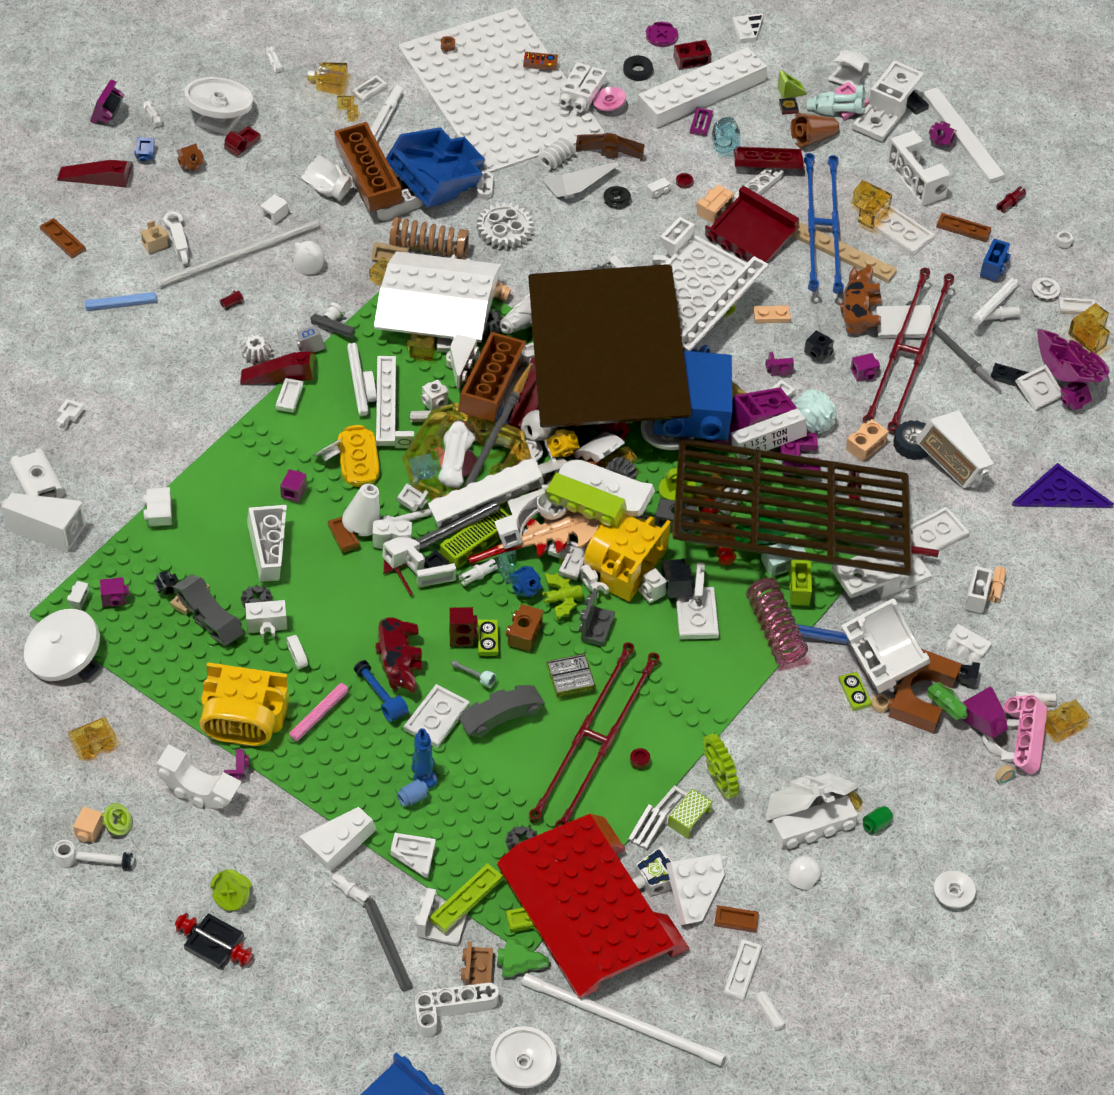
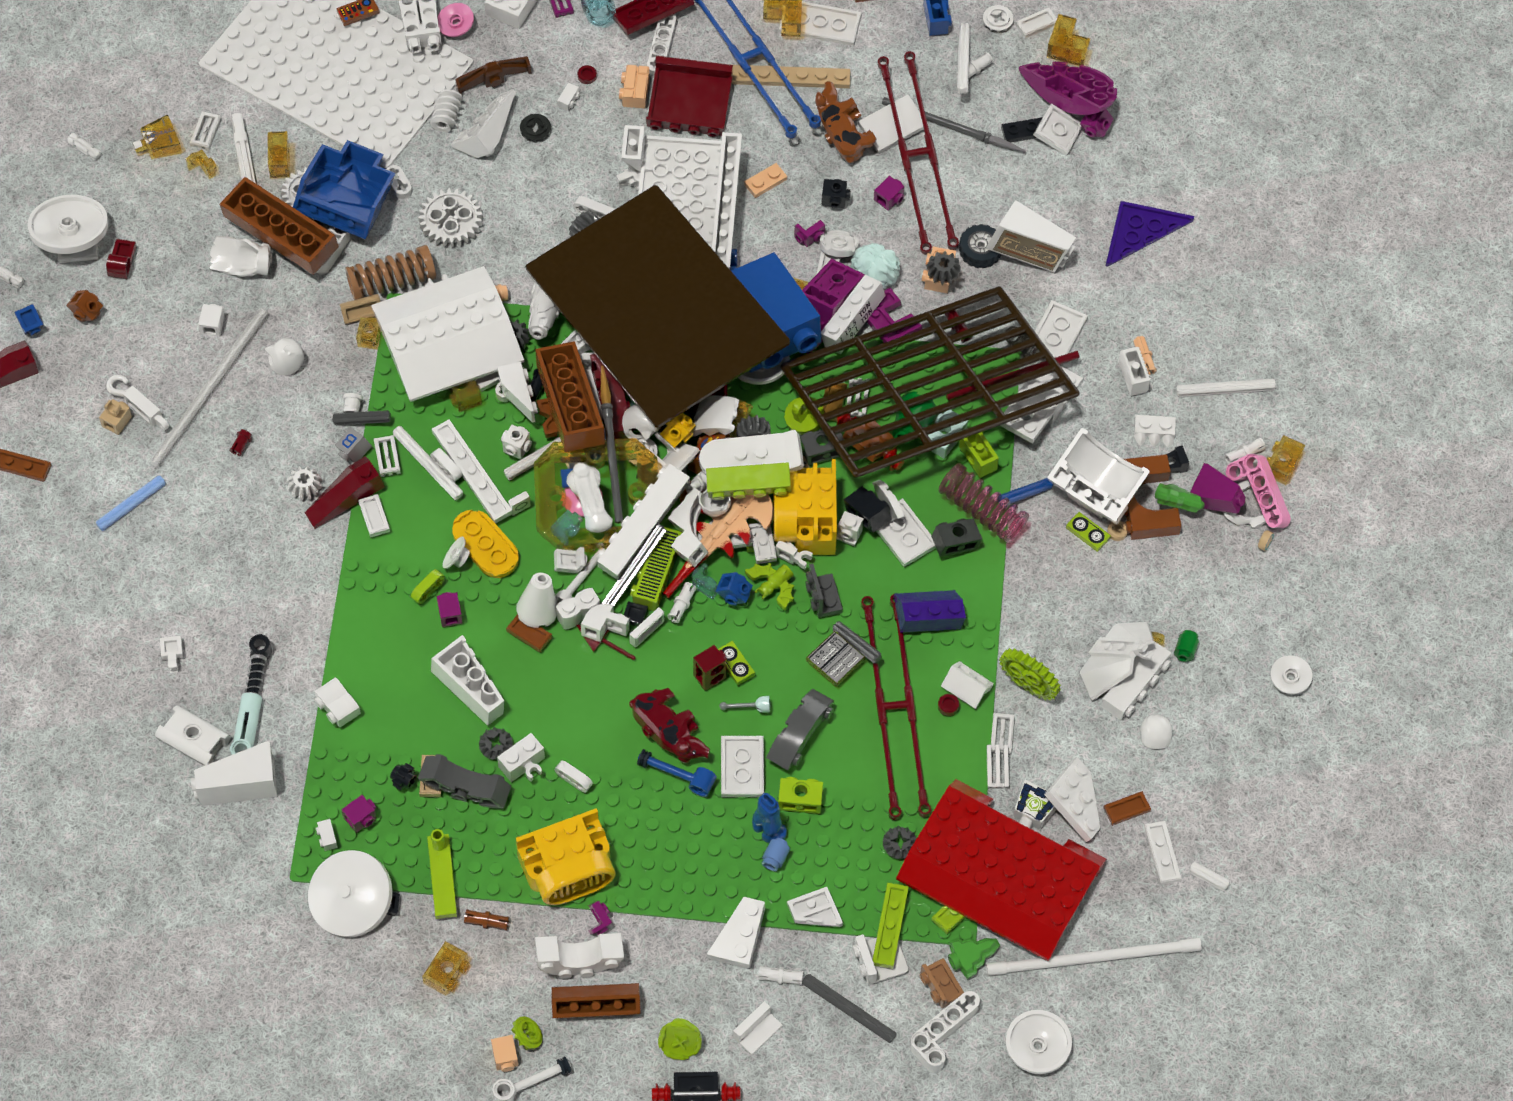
camera: 30 degrees left, 10 degrees up
(99, 474) = (251, 700): none -> piece
(142, 668) = (442, 875): none -> lime piece
(152, 721) = (486, 919): none -> dark orange pin
(187, 824) = (595, 1000): none -> dark orange brick
(292, 461) = (427, 586): none -> lime beam
(300, 917) = (756, 1028): none -> white panel
(318, 712) = (634, 823): bright pink axle -> none
(326, 370) = (388, 470): none -> white tile
(409, 121) = (278, 154): none -> clear yellow brick
(448, 47) = (251, 32): dark orange bush -> none
(471, 769) = (808, 803): none -> lime brick
(524, 627) = (762, 623): dark orange brick -> none
(597, 672) = (857, 642): none -> dark grey axle
(666, 749) = (966, 684): none -> white panel
(673, 679) = (929, 611): none -> dark purple slope
(689, 812) = (1025, 732): lime panel -> none
(736, 635) = (948, 544): none -> pearl dark grey brick
(796, 382) = (838, 243): none -> white tile
(867, 435) = (943, 267): none -> dark grey gear
(1052, 642) = (1226, 387): none -> white axle

